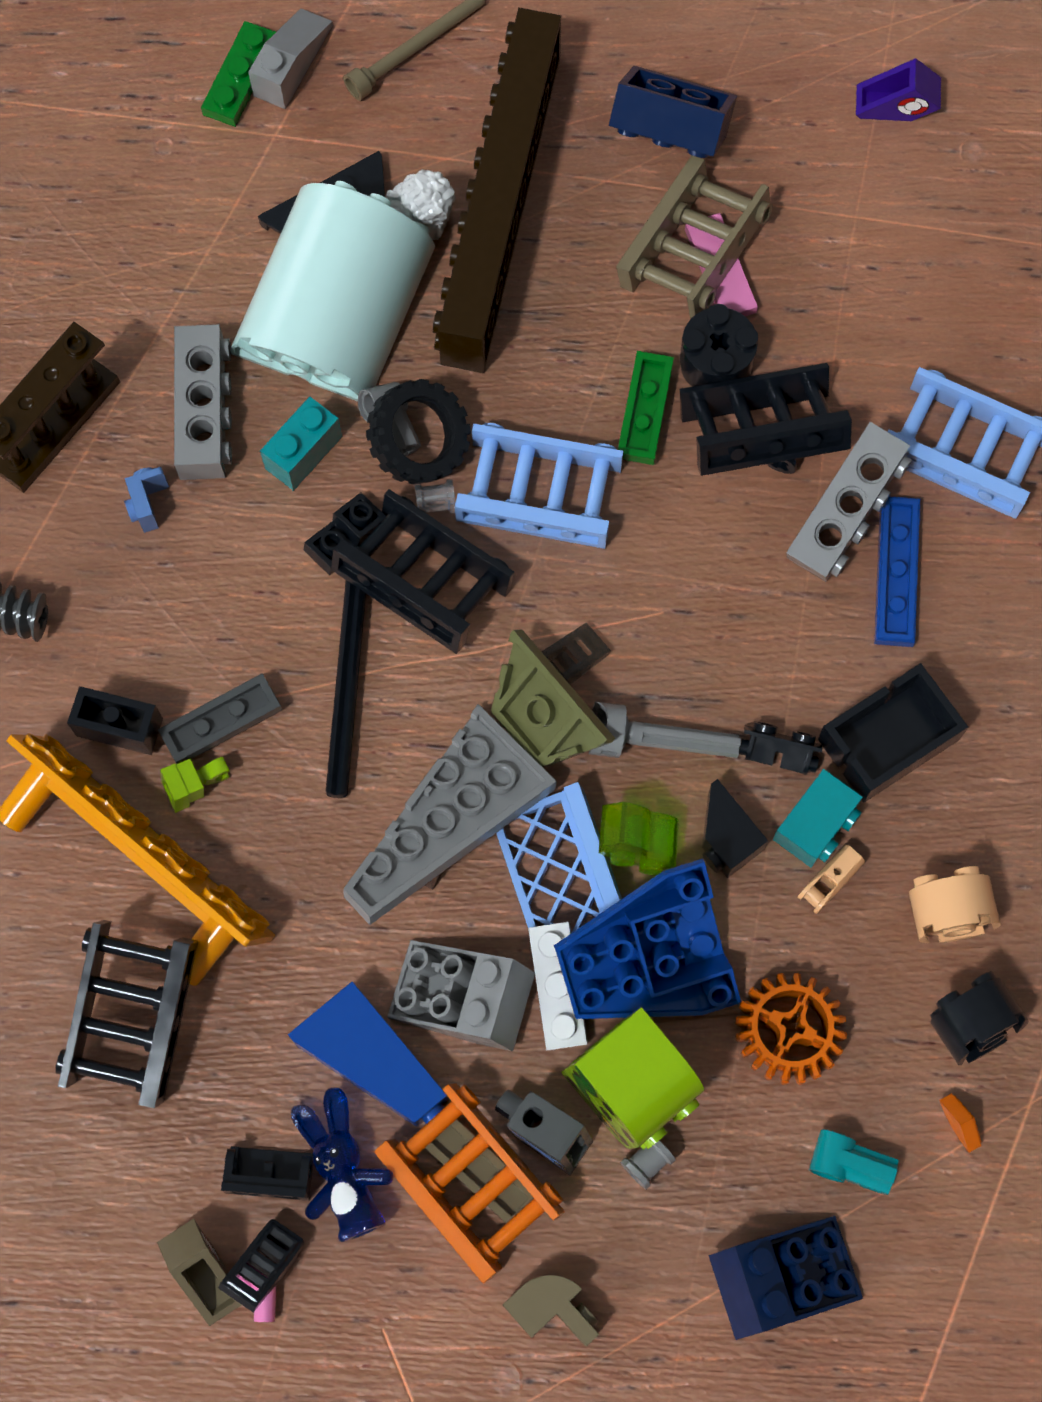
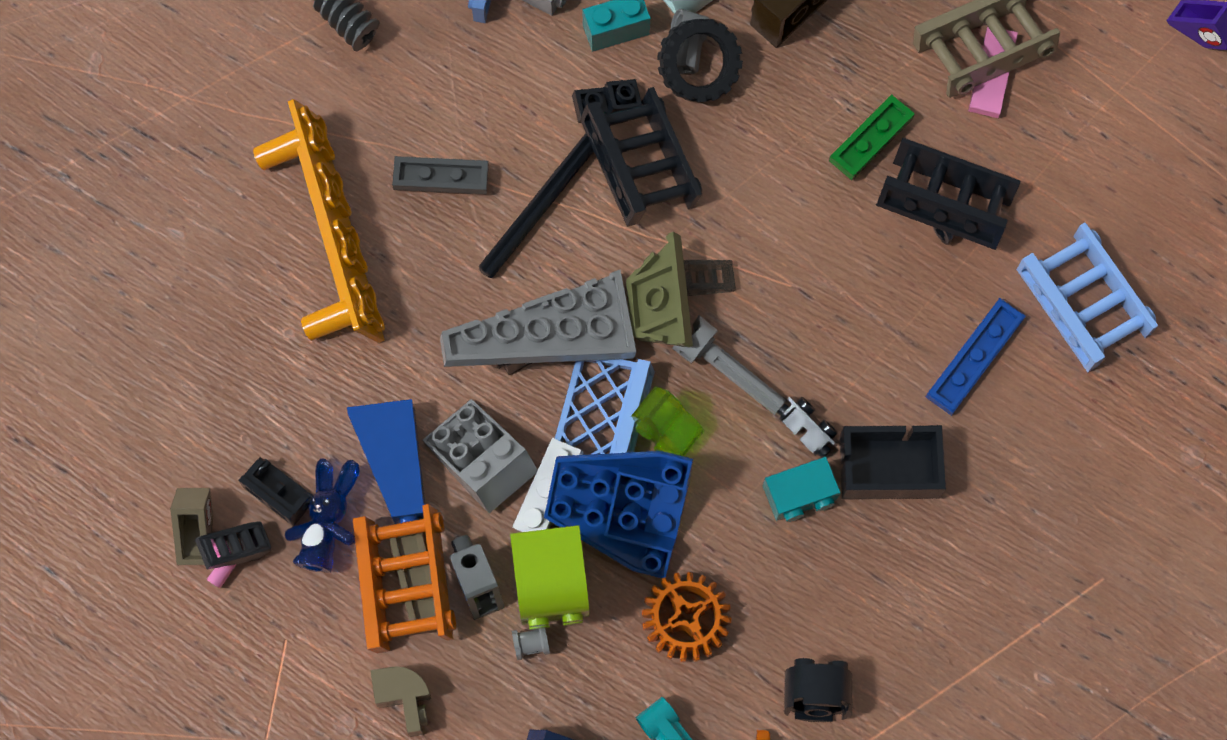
camera: 30 degrees right, 0 degrees up
(115, 720) = (370, 133): black brick -> none
(158, 1040) = (284, 336): black fence -> none
(186, 784) = (389, 204): lime piece -> none
(435, 497) = (684, 113): clear bush -> none
(550, 520) = (754, 175): light blue fence -> none
(717, 346) = (950, 124): black brick -> none
(729, 833) = (732, 461): black slope -> none
(834, 875) = (788, 535): light nougat bar -> none
(872, 447) = (1008, 256): light grey brick -> none
(953, 905) = (853, 604): light nougat brick -> none

